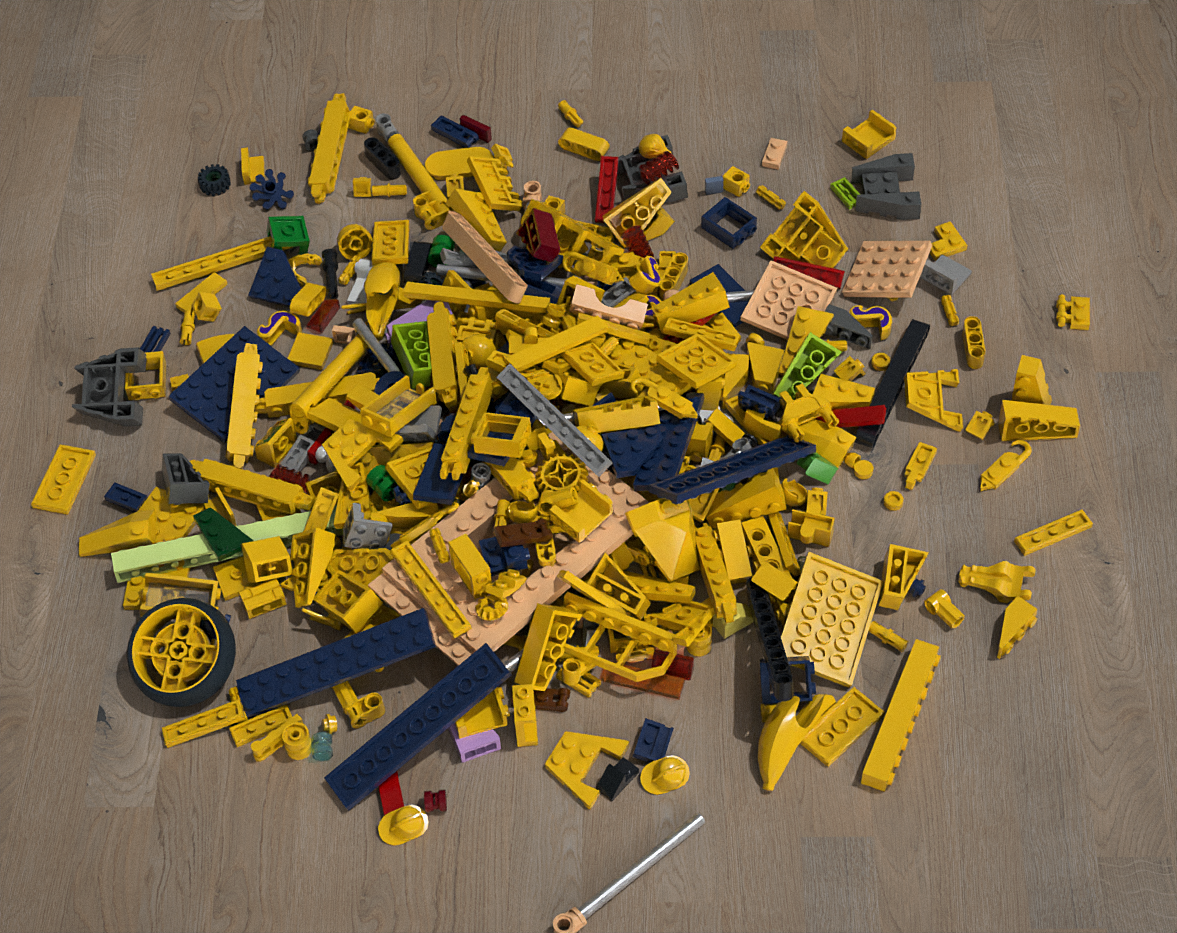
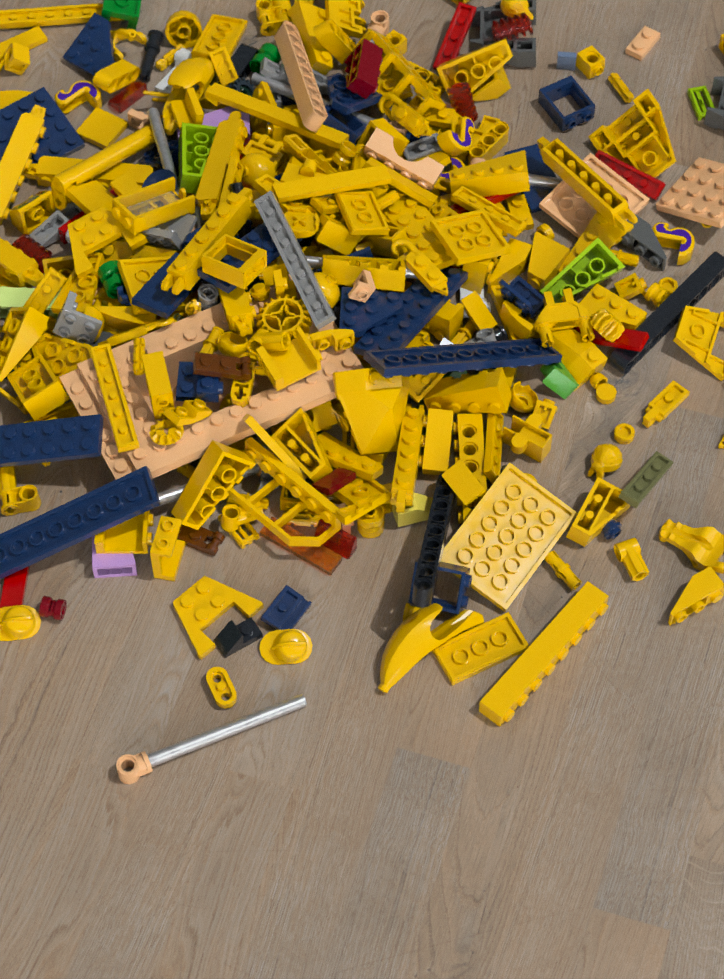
camera: 15 degrees right, 5 degrees up
(391, 312) = (187, 109): none -> yellow panel
(407, 265) = (223, 65): none -> yellow plate
(502, 217) = (334, 39): none -> yellow beam
(615, 481) = (338, 338): none -> yellow slope
(621, 829) = (221, 689): none -> yellow plate
(623, 428) = (363, 287): none -> light nougat bracket
(657, 611) = (334, 481): none -> dark red tile
(780, 286) = (586, 182): none -> yellow hinge
(847, 407) = (607, 325): none -> yellow gear
(875, 370) = (656, 294): none -> yellow wheel
(886, 527) = (605, 459): none -> yellow piece
(931, 535) = (646, 479): none -> olive tile

